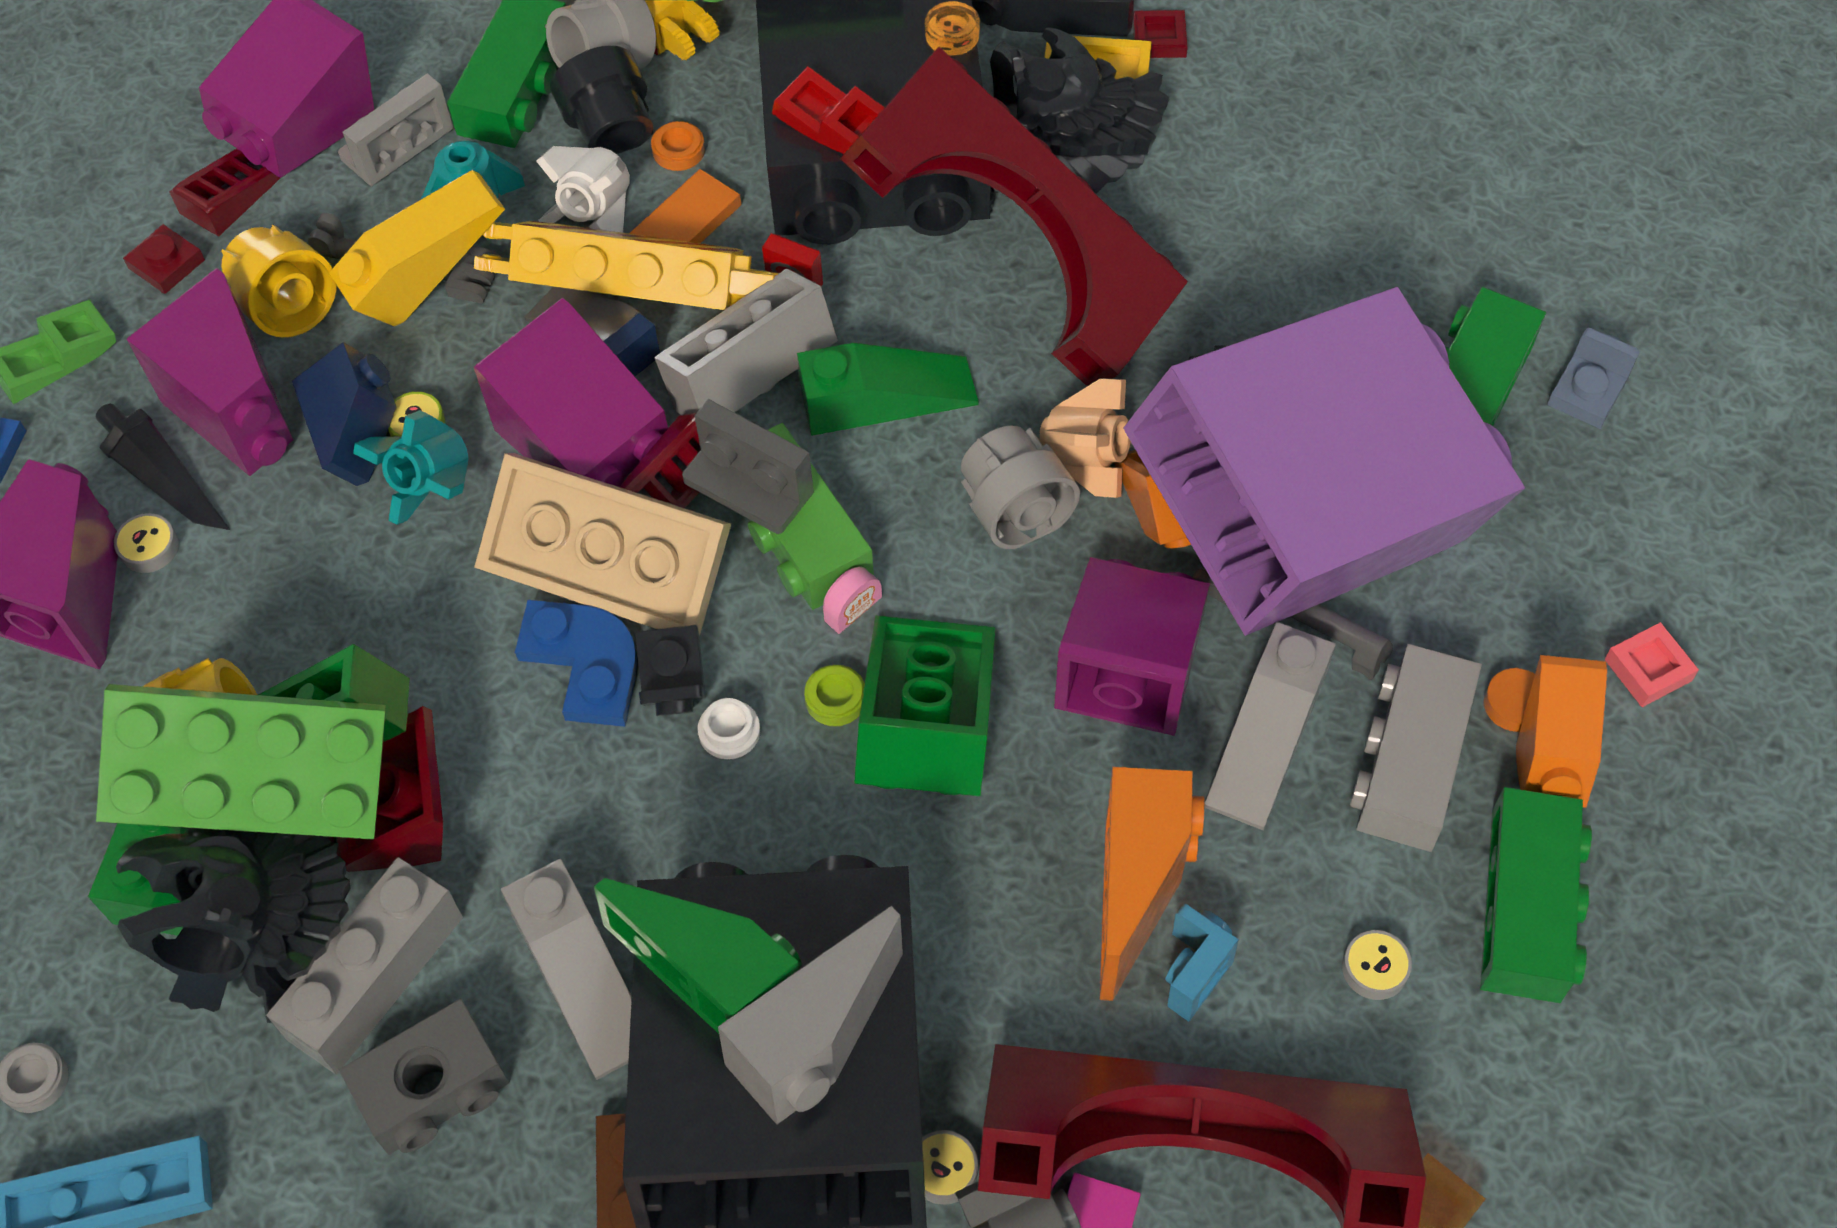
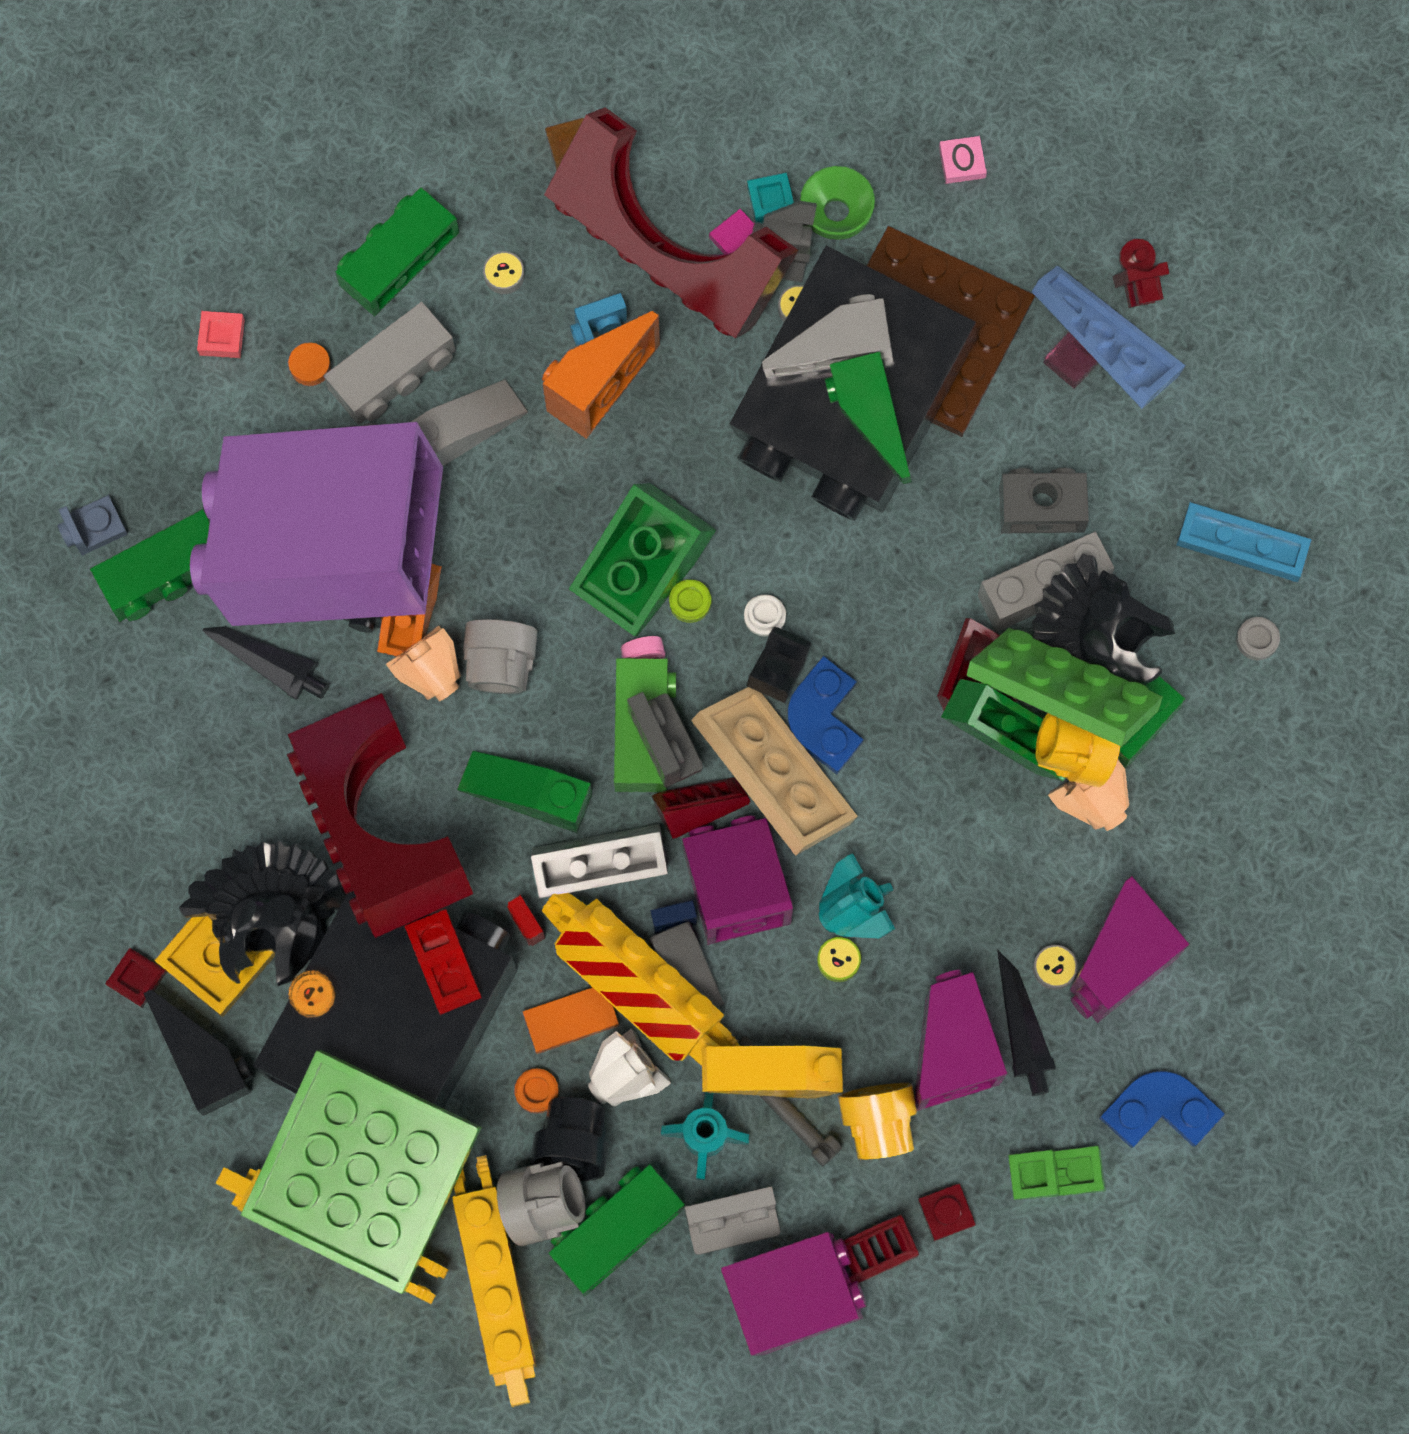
camera: 150 degrees left, 15 degrees up
(345, 402) = (883, 978): dark blue slope -> none
(574, 964) = (930, 518): light grey slope -> none
(1130, 645) = (502, 513): magenta slope -> none
(1563, 728) = (317, 309): orange slope -> none

